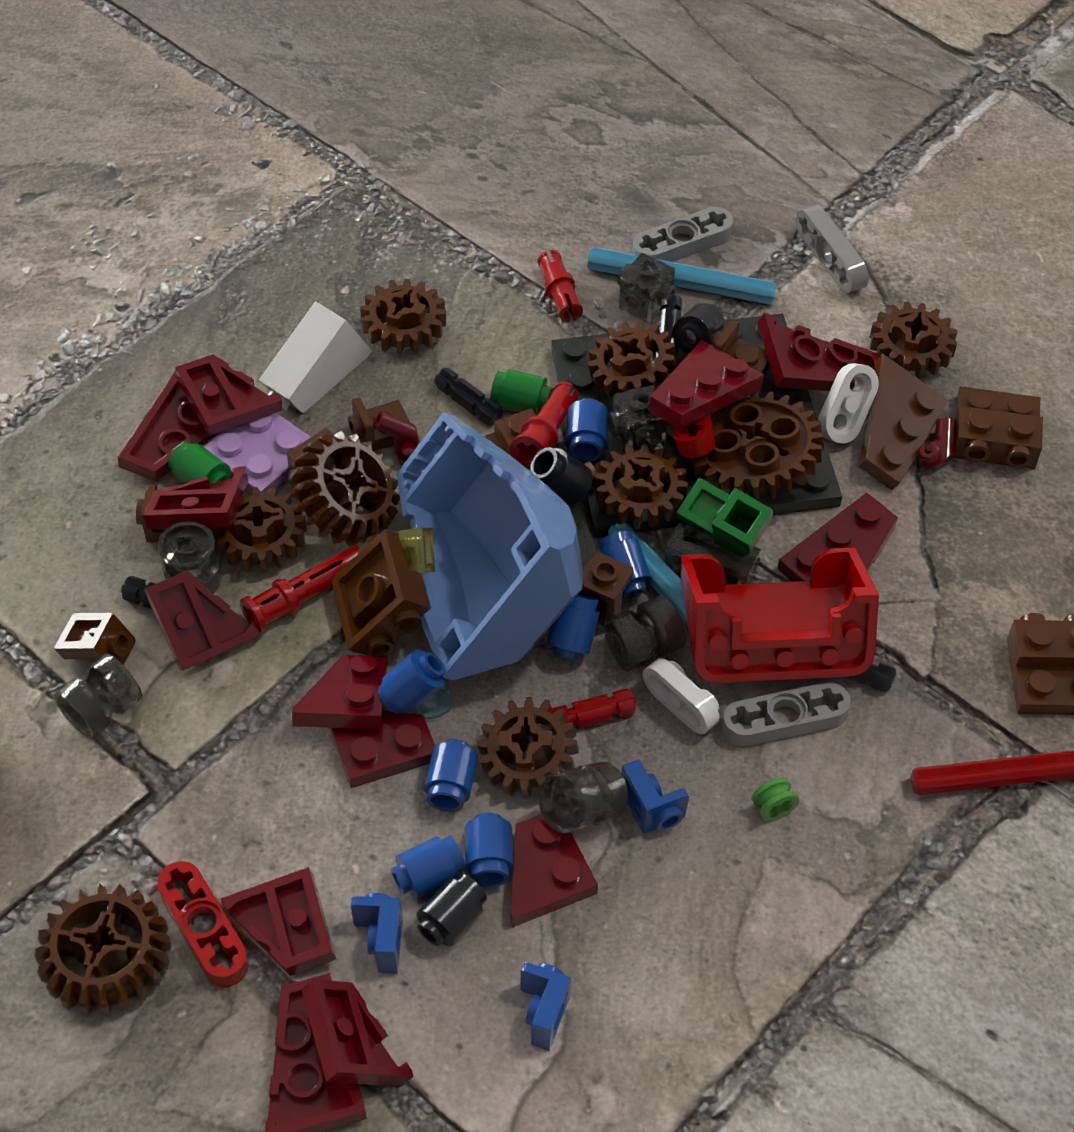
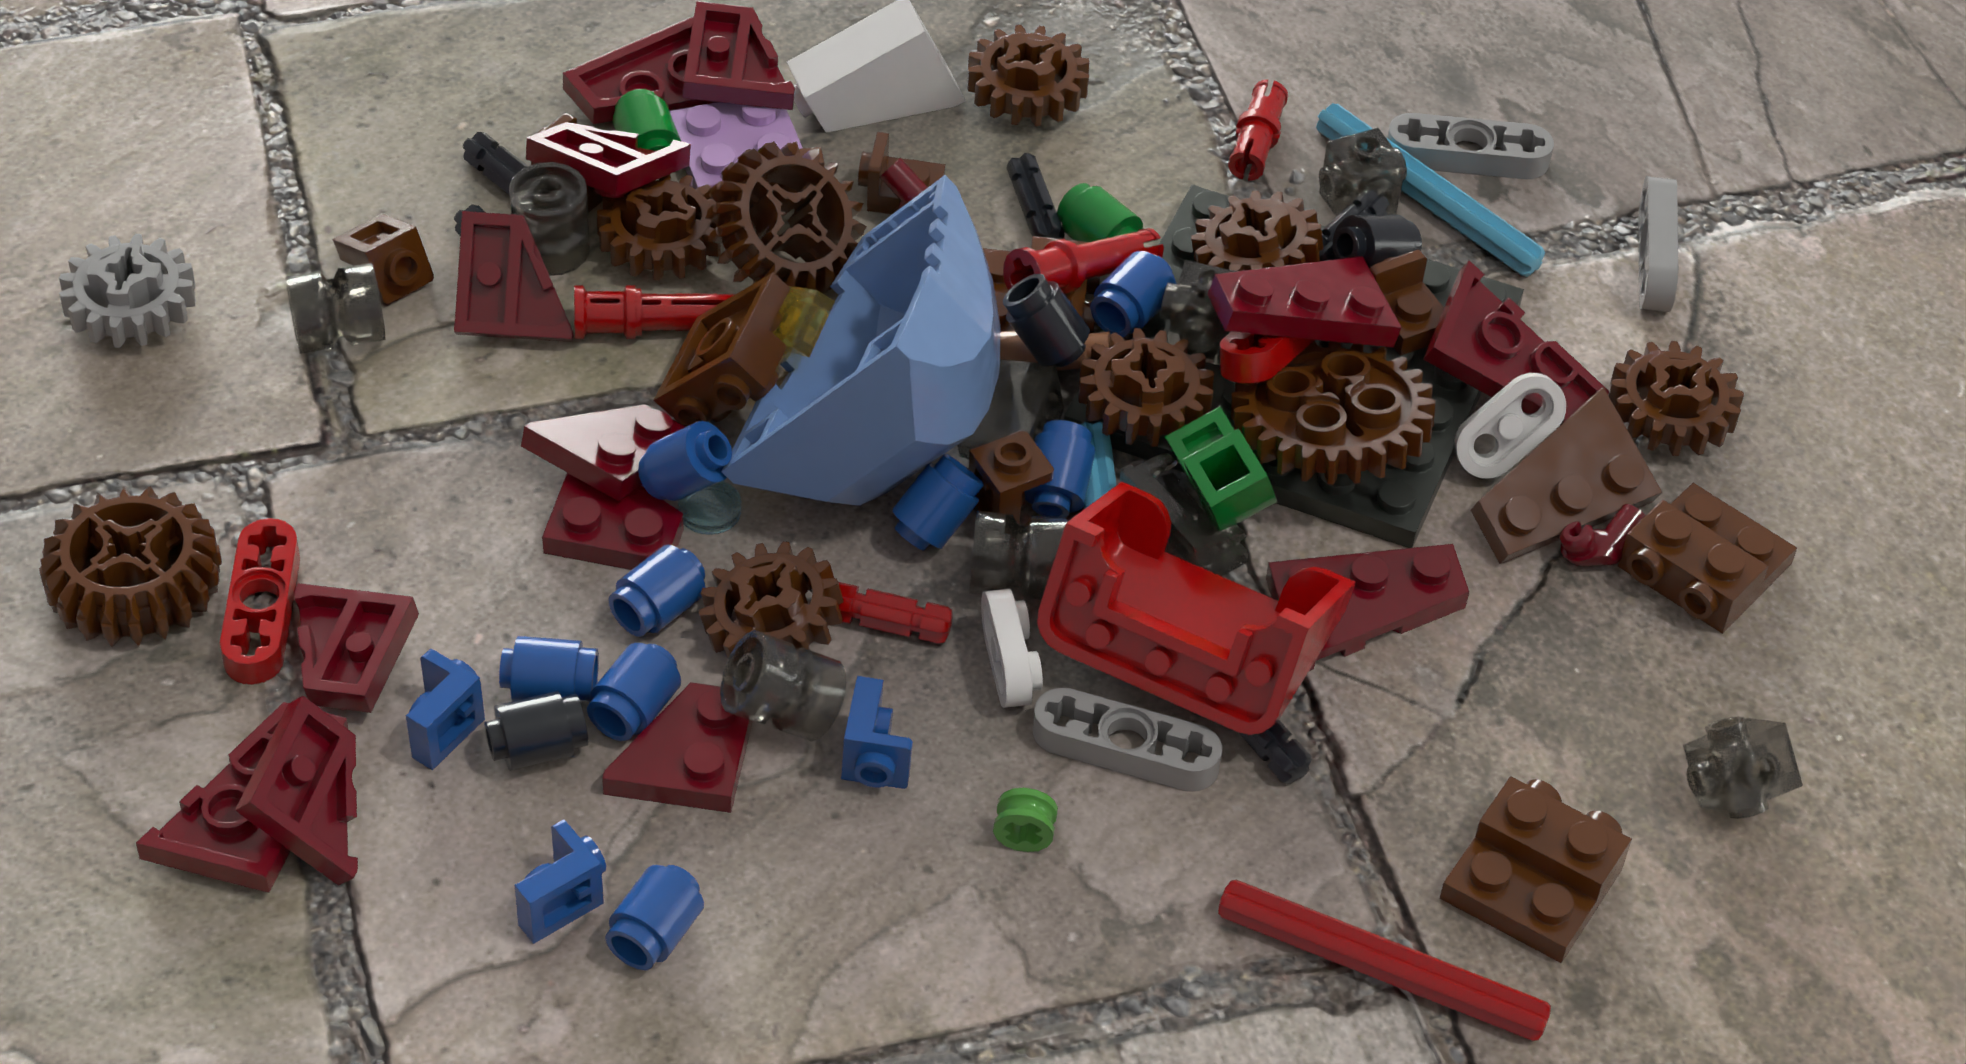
camera: 30 degrees right, 5 degrees down
(123, 541) = (496, 163): none -> black axle
(617, 990) = (654, 916): none -> blue brick

